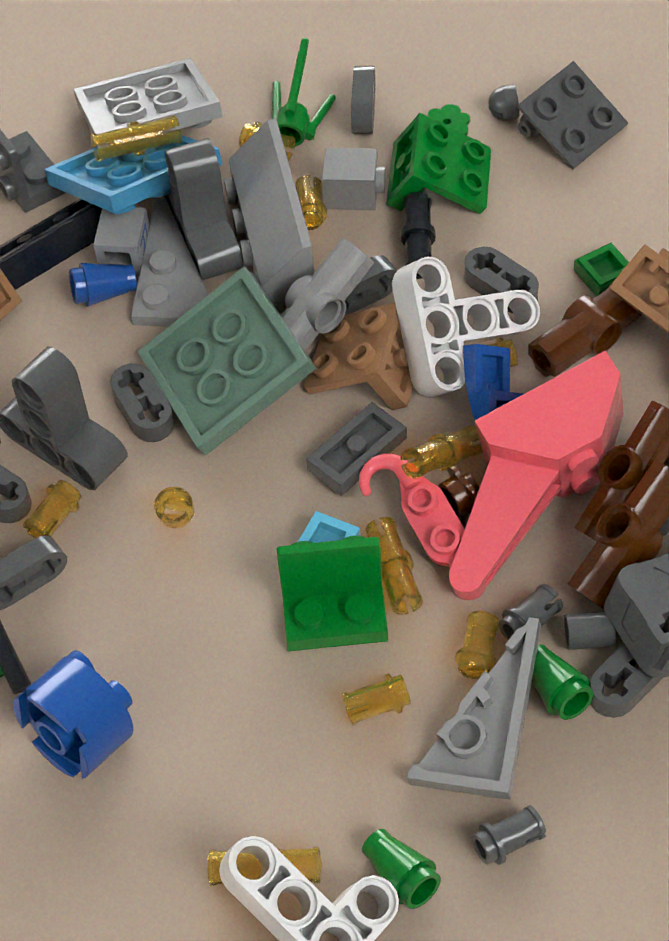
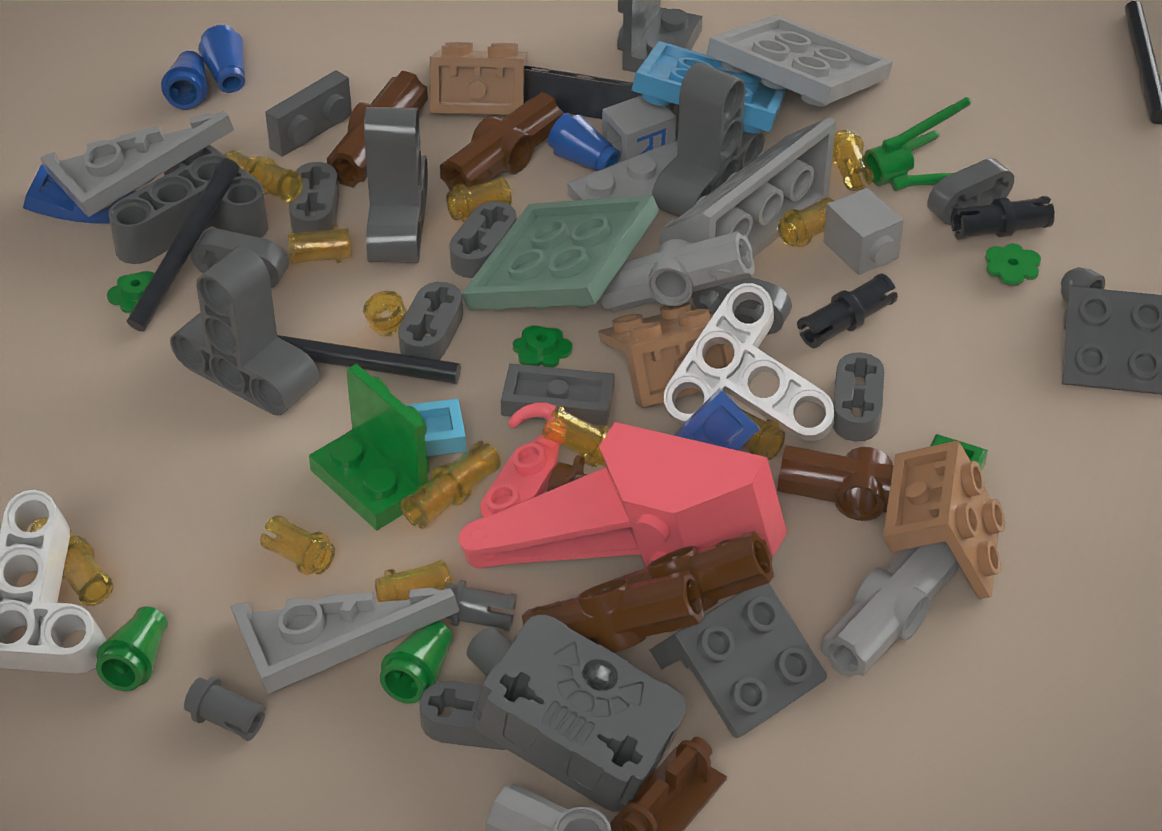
camera: 50 degrees right, 10 degrees down
(50, 318) = (502, 143): none -> reddish brown piece
(75, 715) = (115, 354): blue brick -> none
(97, 379) = (465, 199): none -> clear yellow pin
(136, 138) = (733, 60): clear yellow pin -> none
(142, 620) = (237, 337): none -> dark grey beam
(196, 556) = (378, 360): none -> black bar
(212, 480) = (422, 320): none -> dark grey beam
(285, 432) = (542, 346): none -> green plant
(402, 100) = (1002, 217): none -> black pin
(441, 161) = (950, 283): green bracket -> none

